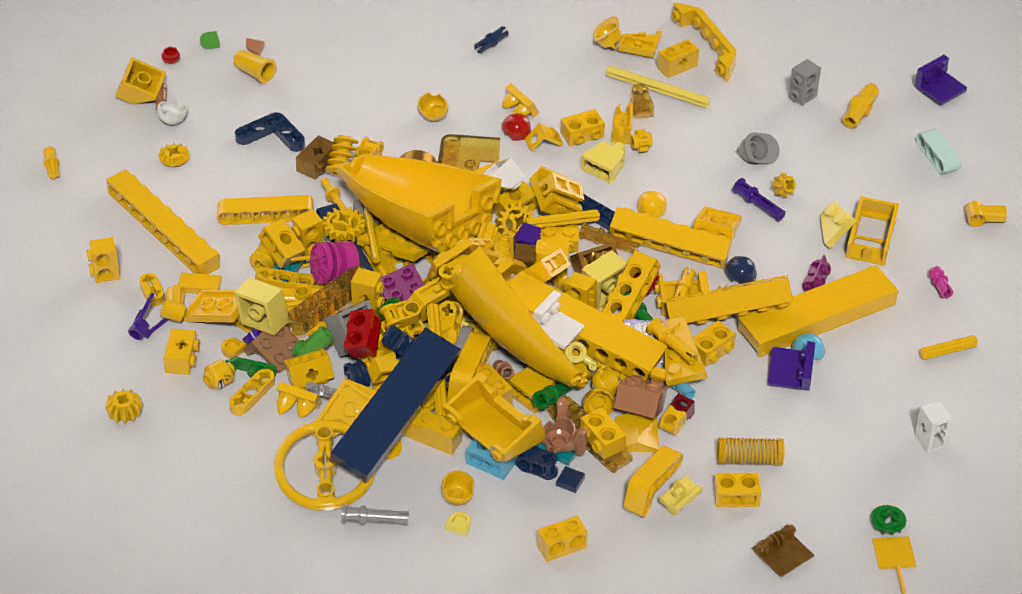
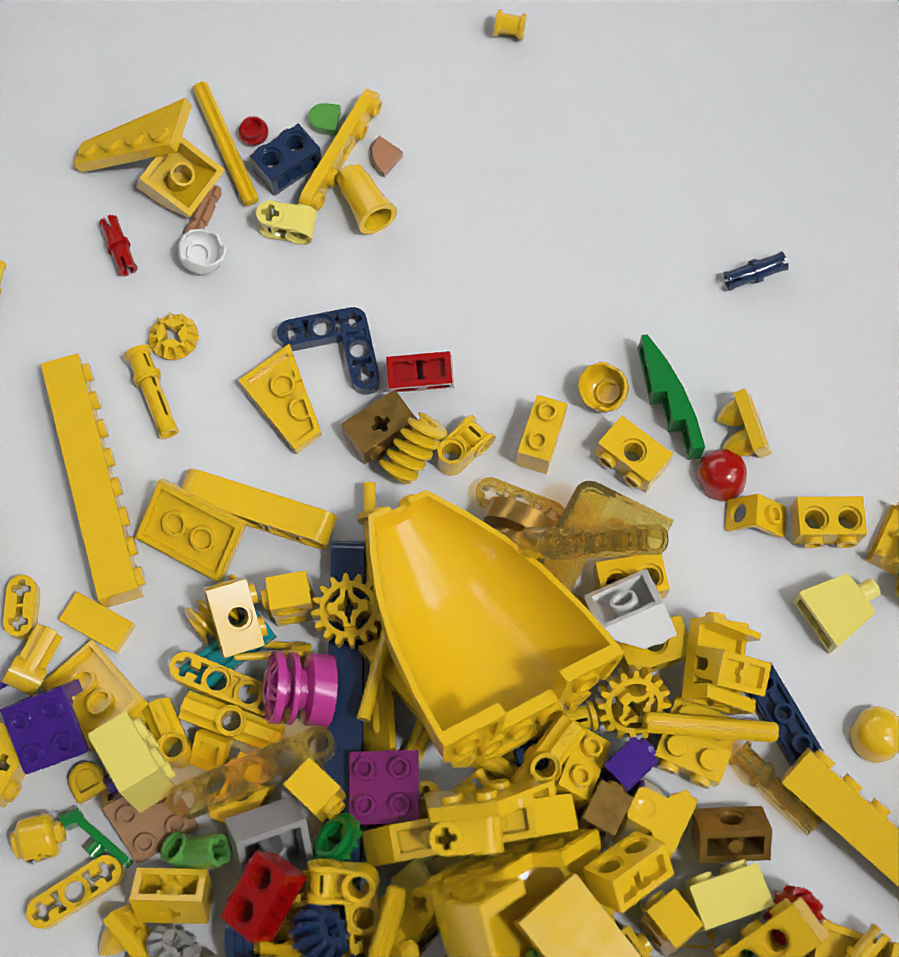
camera: 25 degrees right, 25 degrees up
(106, 70) = (136, 140): none -> yellow wing
(118, 124) = (118, 245): none -> red pin
(145, 57) = (225, 143): none -> yellow axle
(170, 174) = (148, 379): none -> yellow pin
(198, 61) = (290, 164): none -> dark blue brick
(201, 317) = (45, 727): none -> dark purple bracket
(214, 86) = (288, 221): none -> light yellow piece
(226, 57) = (350, 133): none -> yellow piece
(233, 225) = (191, 530): none -> yellow tile
(252, 161) = (282, 398): none -> yellow wing
(328, 124) = (420, 371): none -> red brick
(409, 132) = (541, 434): none -> yellow brick
(461, 152) = (592, 541): none -> clear yellow beam
(464, 125) = (627, 437): none -> yellow brick
(471, 100) = (666, 389): none -> green slope

